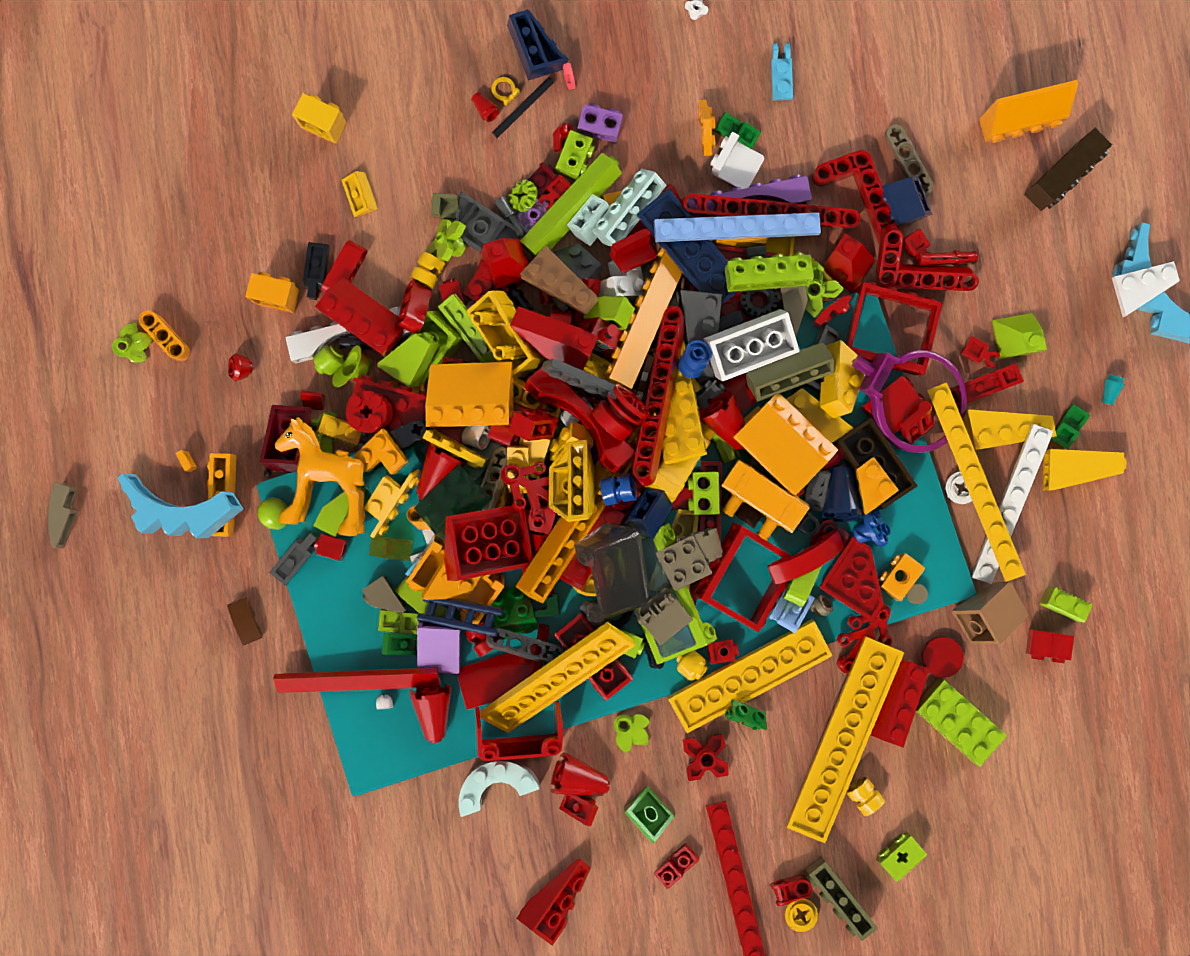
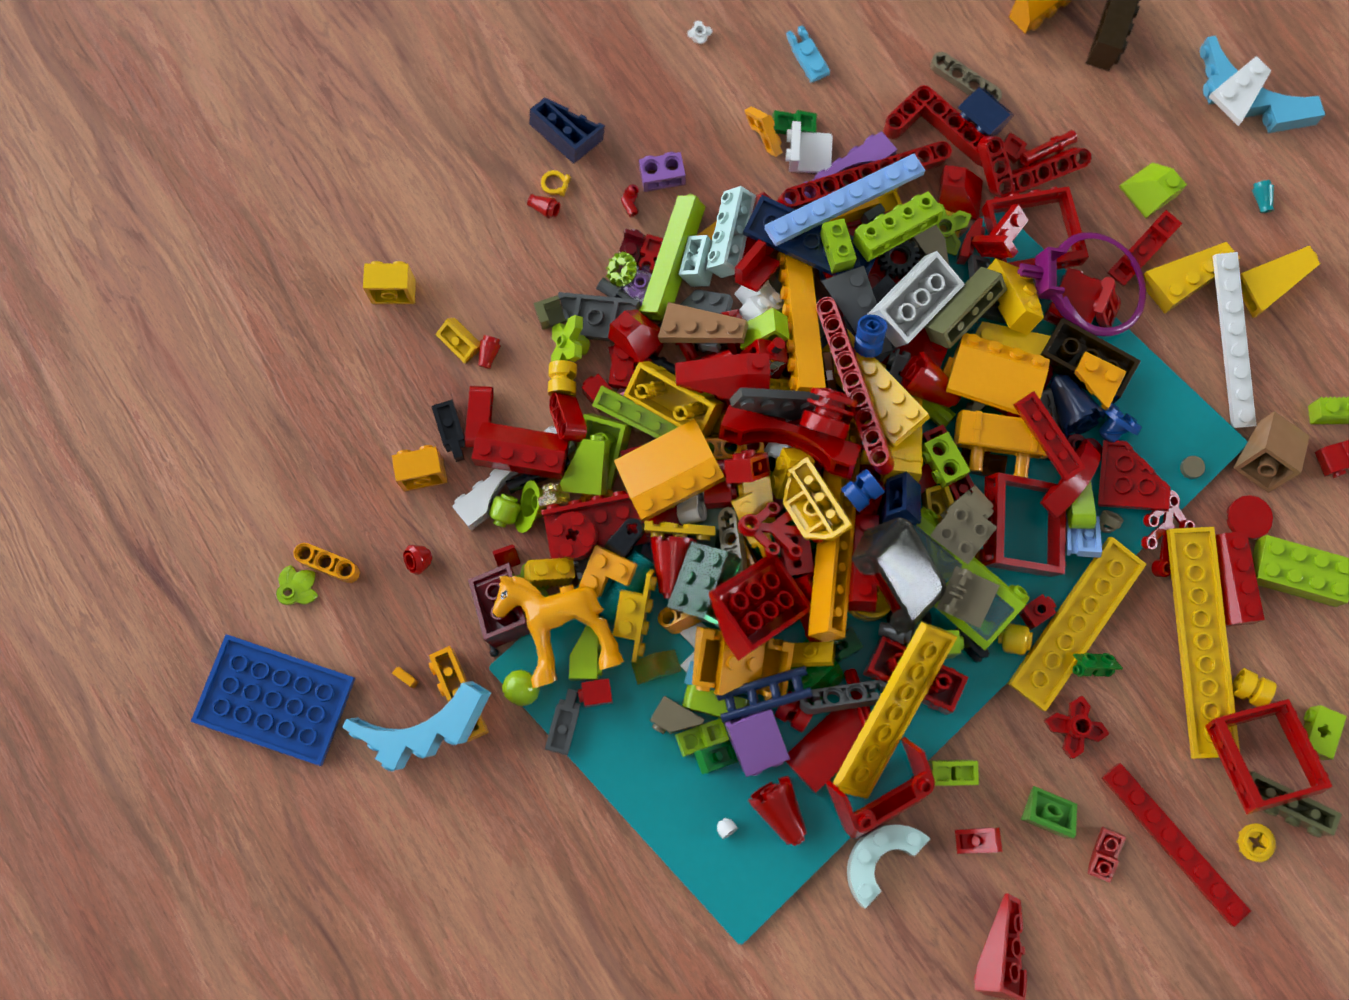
camera: 25 degrees left, 10 degrees down
(61, 514) = (297, 793): dark tan slope -> none
(74, 428) = (273, 700): none -> blue plate
(244, 621) = (540, 814): reddish brown slope -> none
(357, 680) = (687, 817): red tile -> none
(370, 367) = (553, 495): none -> clear yellow tile
(377, 216) = (488, 350): none -> red cone
(516, 600) = (813, 654): none -> yellow plate
(522, 107) = (580, 190): black bar -> none
(568, 75) = (610, 142): coral tile -> none
(574, 155) = (652, 210): lime brick -> none
(578, 778) = (961, 810): red cone -> none
(584, 745) = (954, 772): none -> lime brick
(633, 733) = (991, 737): lime plate -> none
(708, 266) = (838, 245): none -> lime brick
(790, 889) = (1230, 824): red piece -> none
(797, 517) = (1049, 436): none -> red plate
(811, 848) = (1237, 769): none -> red window
(859, 321) = (1000, 240): none -> red bracket
(911, 571) = (1177, 447): light orange brick -> none
(952, 490) = (1184, 343): white gear -> none
(976, 482) = (1193, 335): yellow plate -> none
(977, 351) = (1122, 219): red plate -> none
(1070, 425) = (1245, 244): green slope -> none

